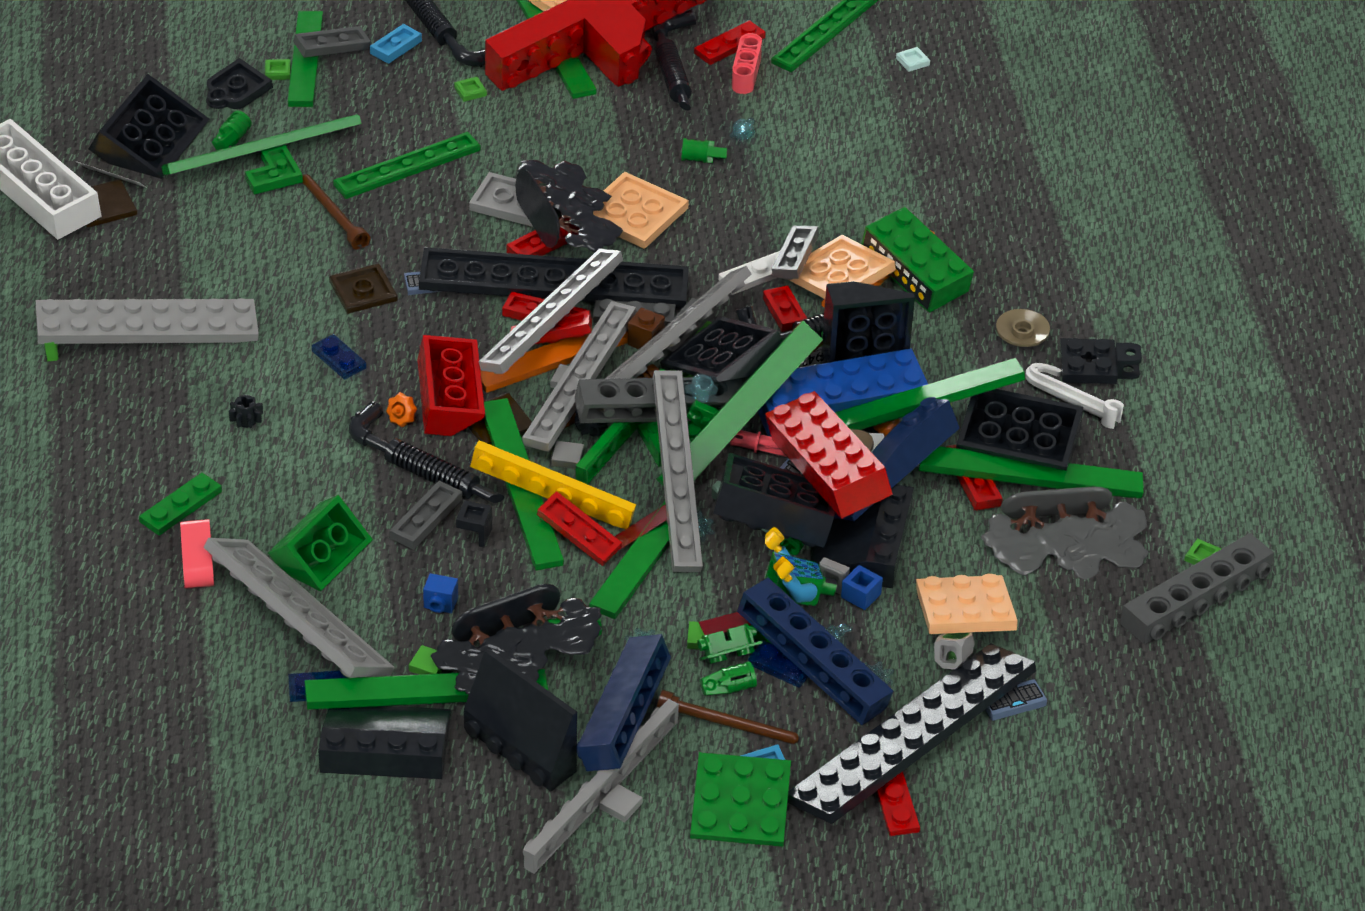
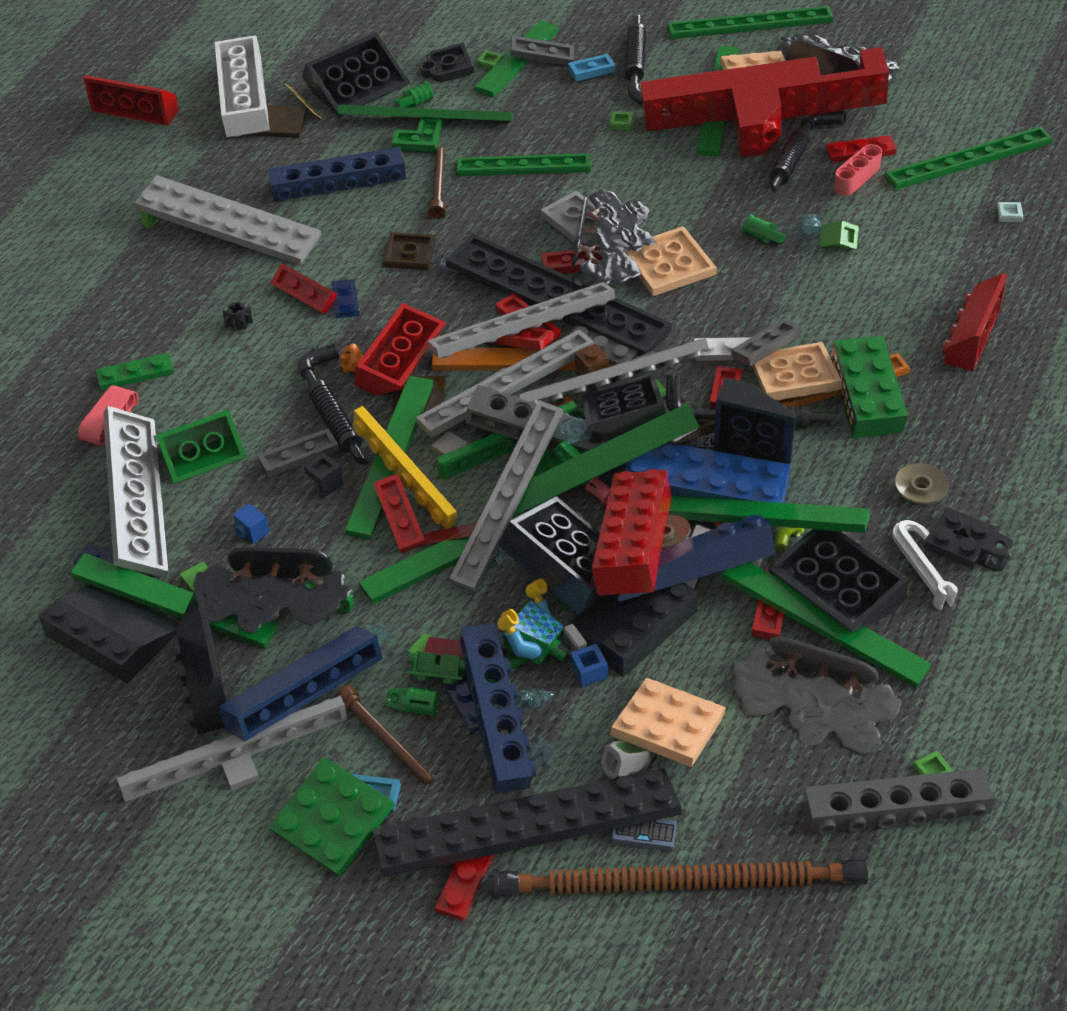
camera: 35 degrees right, 5 degrees up
(221, 237) = (337, 174): none -> dark blue brick
(290, 361) = (303, 288): none -> red plate
(777, 131) = (839, 234): none -> bright green panel
(966, 169) = (974, 323): none -> red slope
(1066, 722) = (512, 883): none -> dark orange hose

